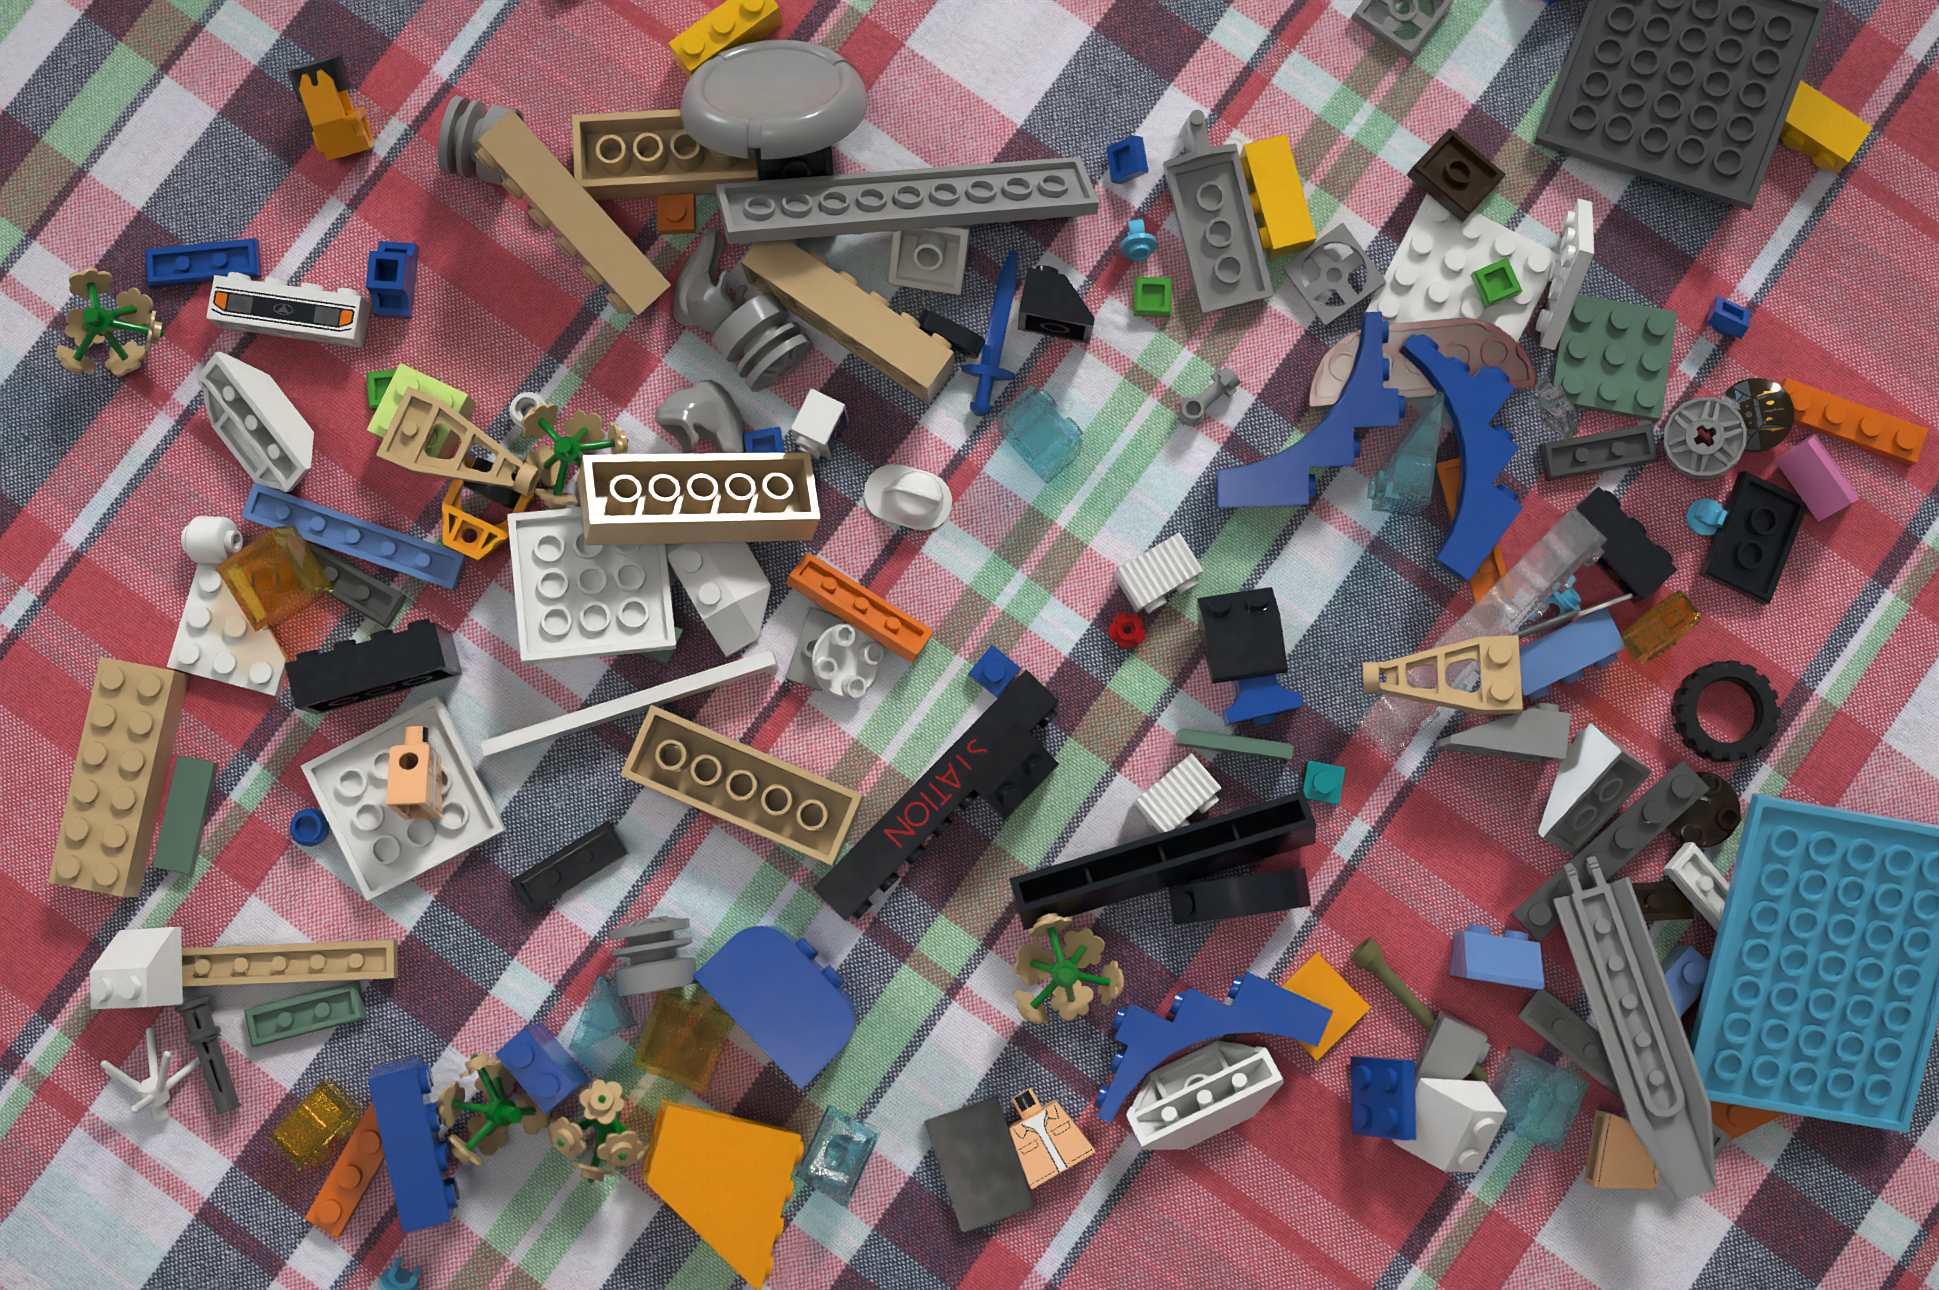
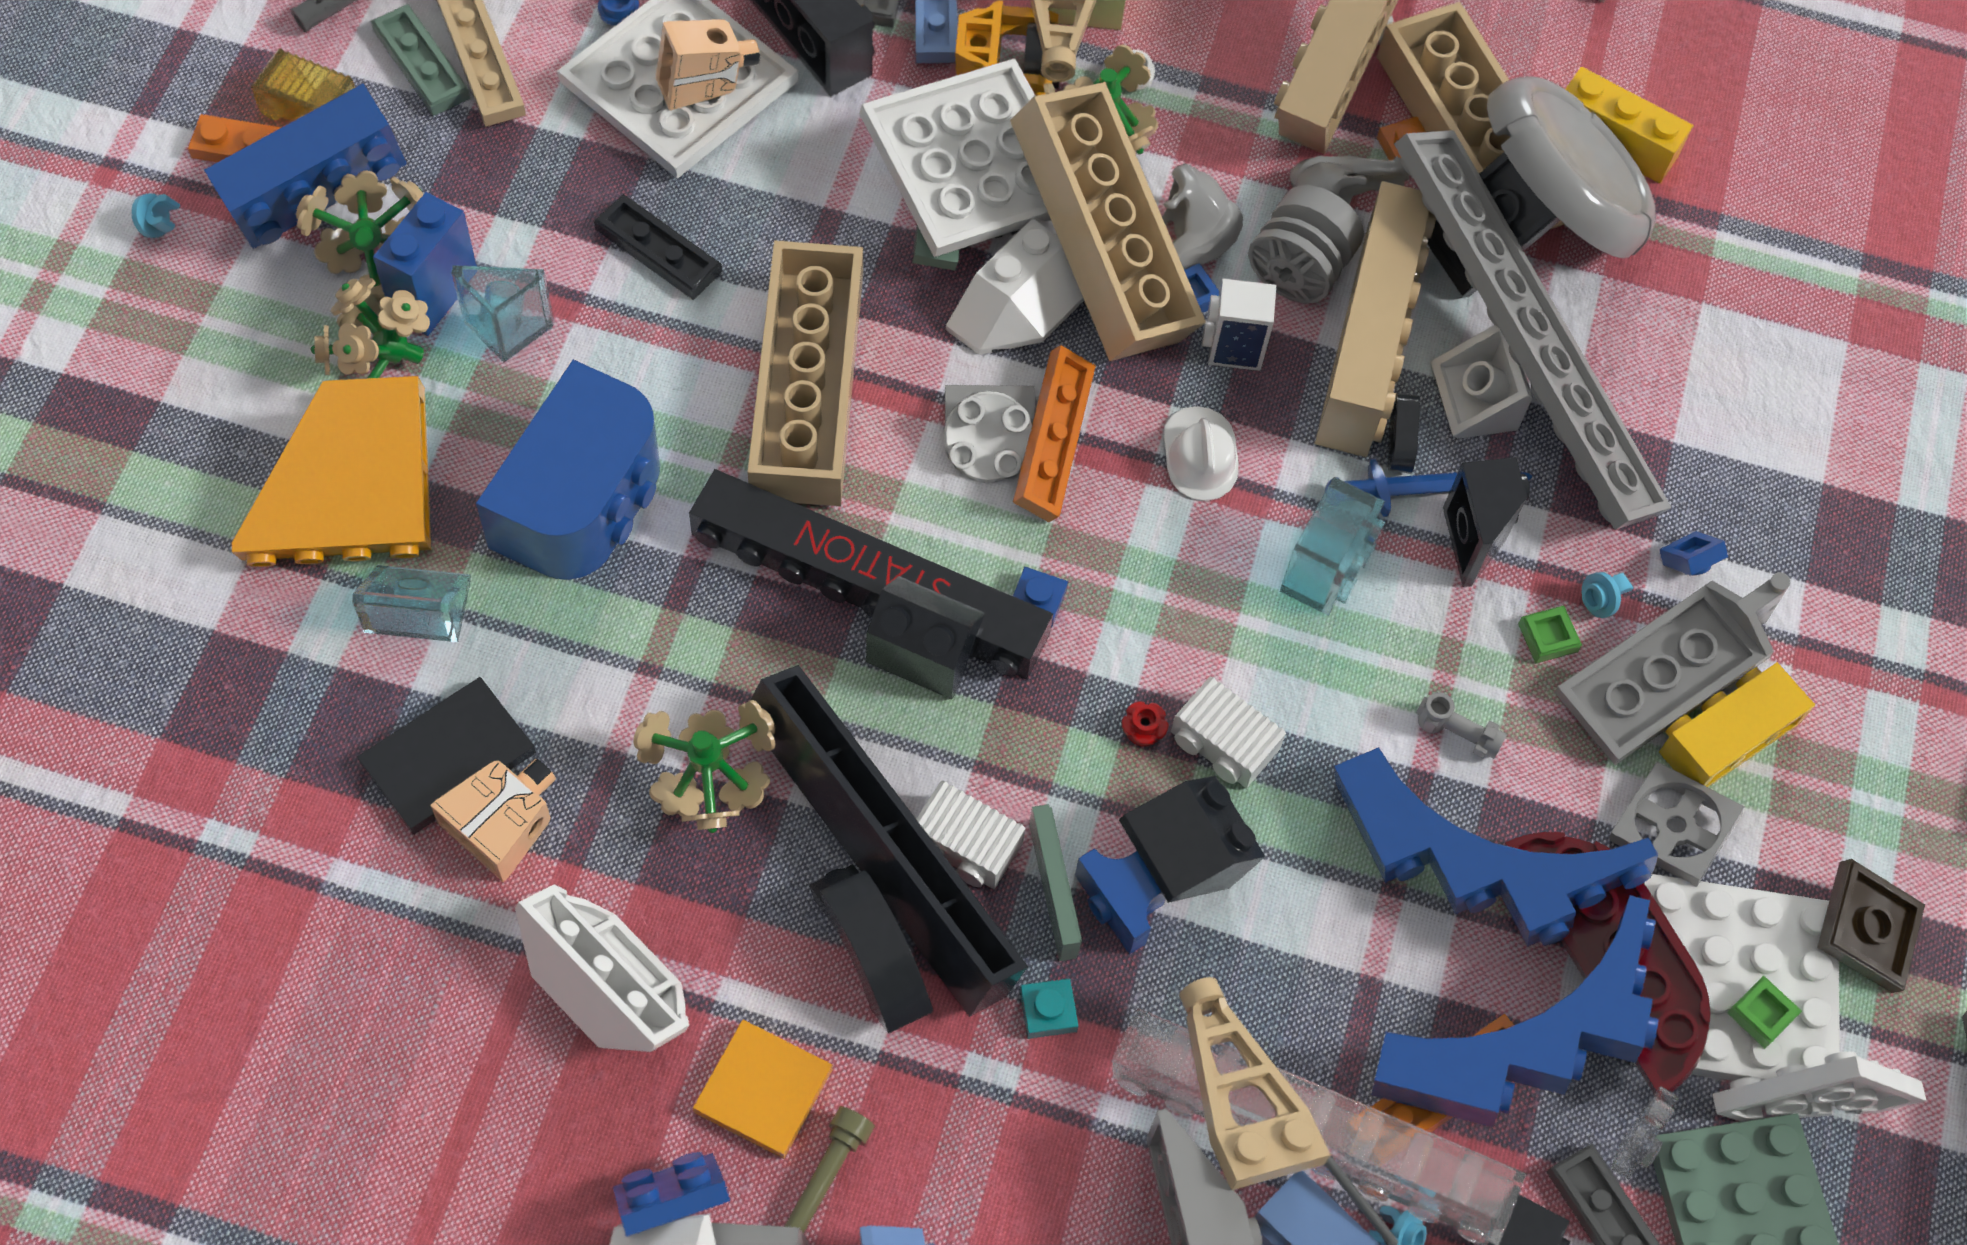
camera: 65 degrees right, 20 degrees down
(629, 704) = (845, 231): white tile -> none
(652, 956) = (590, 332): light grey wheel -> none
(683, 1041) = (494, 393): clear yellow brick -> none
(1254, 1008) = (700, 937): blue arch -> none
(1407, 475) = (1493, 969): clear light blue slope -> none

